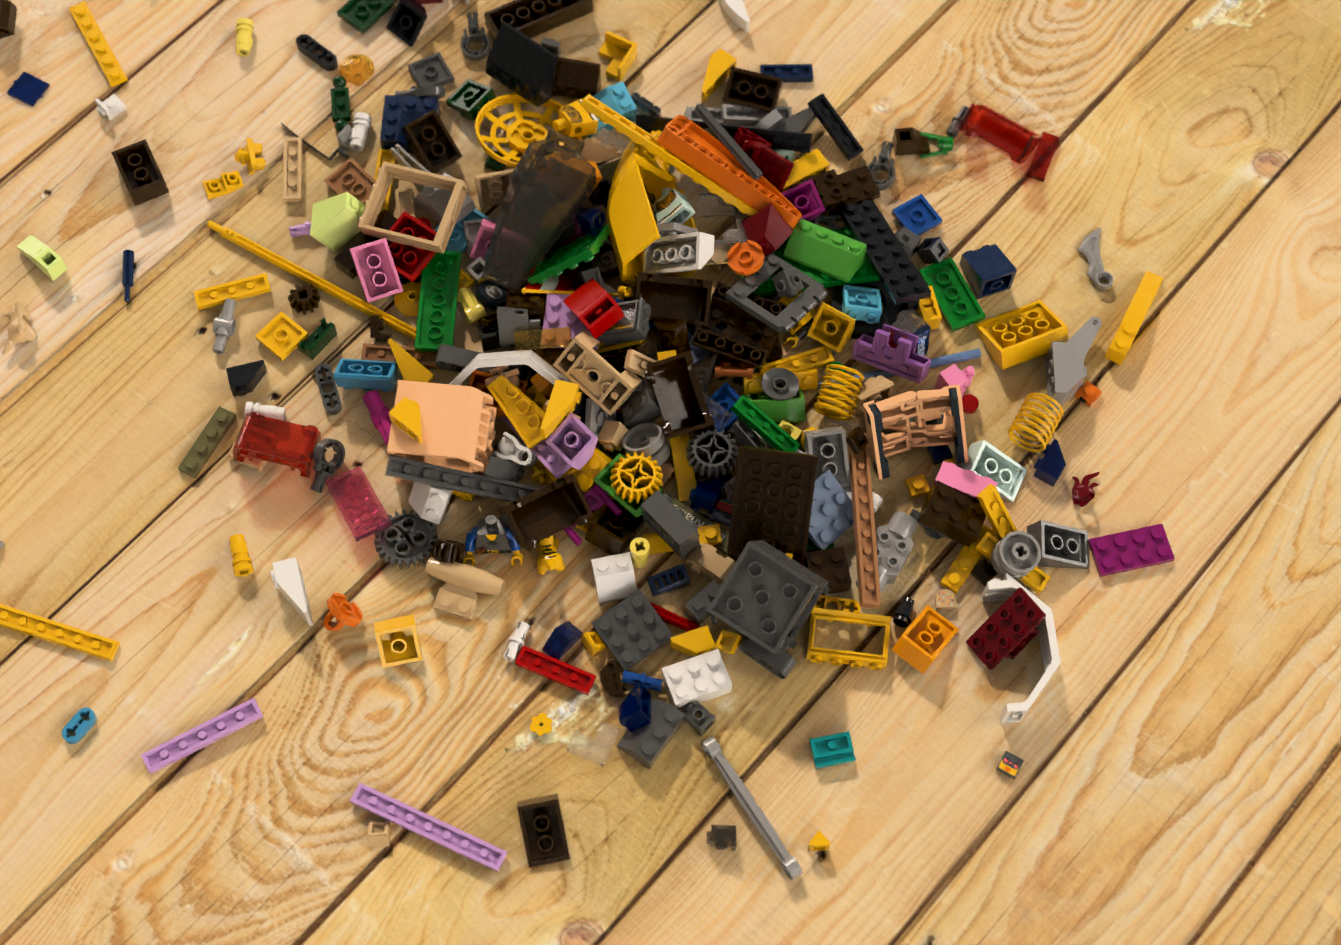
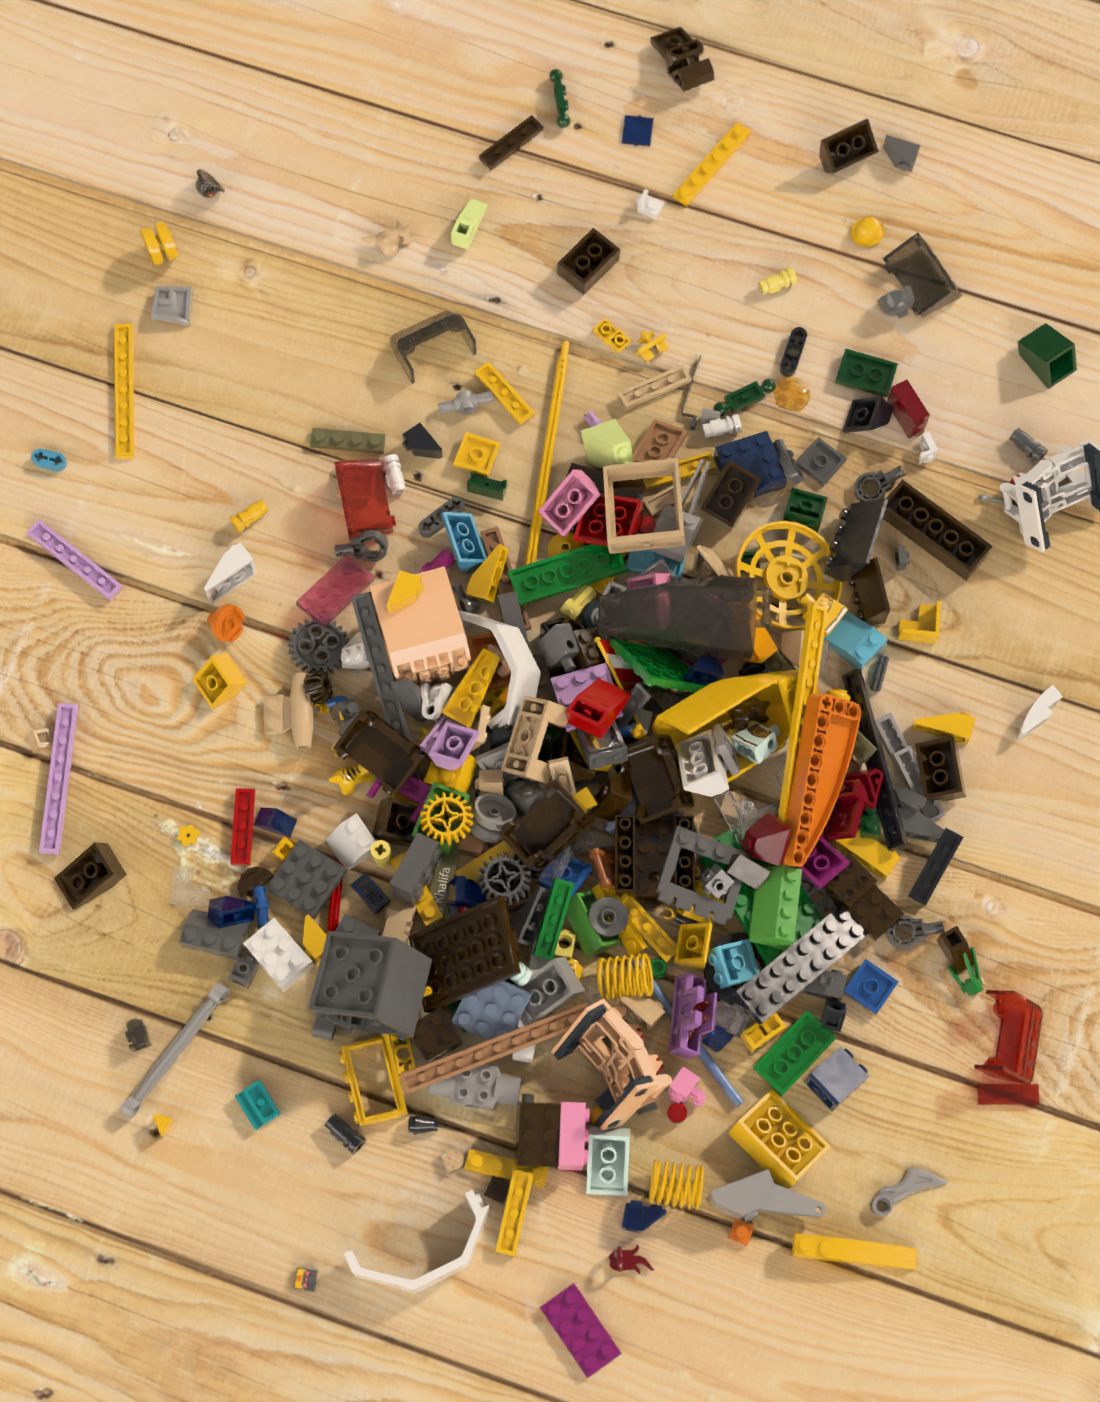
camera: 70 degrees right, 5 degrees up
(127, 273) = (485, 299): dark blue axle -> none
(137, 353) = (405, 341): none -> clear smoke windscreen
(304, 298) = (529, 453): dark brown gear -> none
(377, 325) = (518, 531): dark brown bracket -> none
(516, 641) = (257, 781): white pin -> none
(542, 338) = (553, 676): clear yellow tile -> none
(561, 404) = (483, 718): yellow slope -> none
(728, 141) = (853, 764): dark grey axle -> none
(745, 258) = (724, 830): orange tile -> none
(787, 257) = (747, 871): none -> slope
(789, 72) = (984, 795): dark blue tile -> none
(857, 440) = (573, 1010): dark brown tile -> none
(885, 683) = (343, 1132): none -> black axle
(917, 486) = (564, 1091): yellow plate -> none
(925, 639) = (402, 1154): light orange slope -> none
(953, 129) = (996, 986): dark grey axle -> none
(996, 511) = (547, 1181): yellow plate -> none
(1007, 629) = (435, 1228): dark red bracket -> none
(1016, 554) = (506, 1219): light grey wheel -> none
(1060, 545) = (552, 1253): dark grey slope -> none

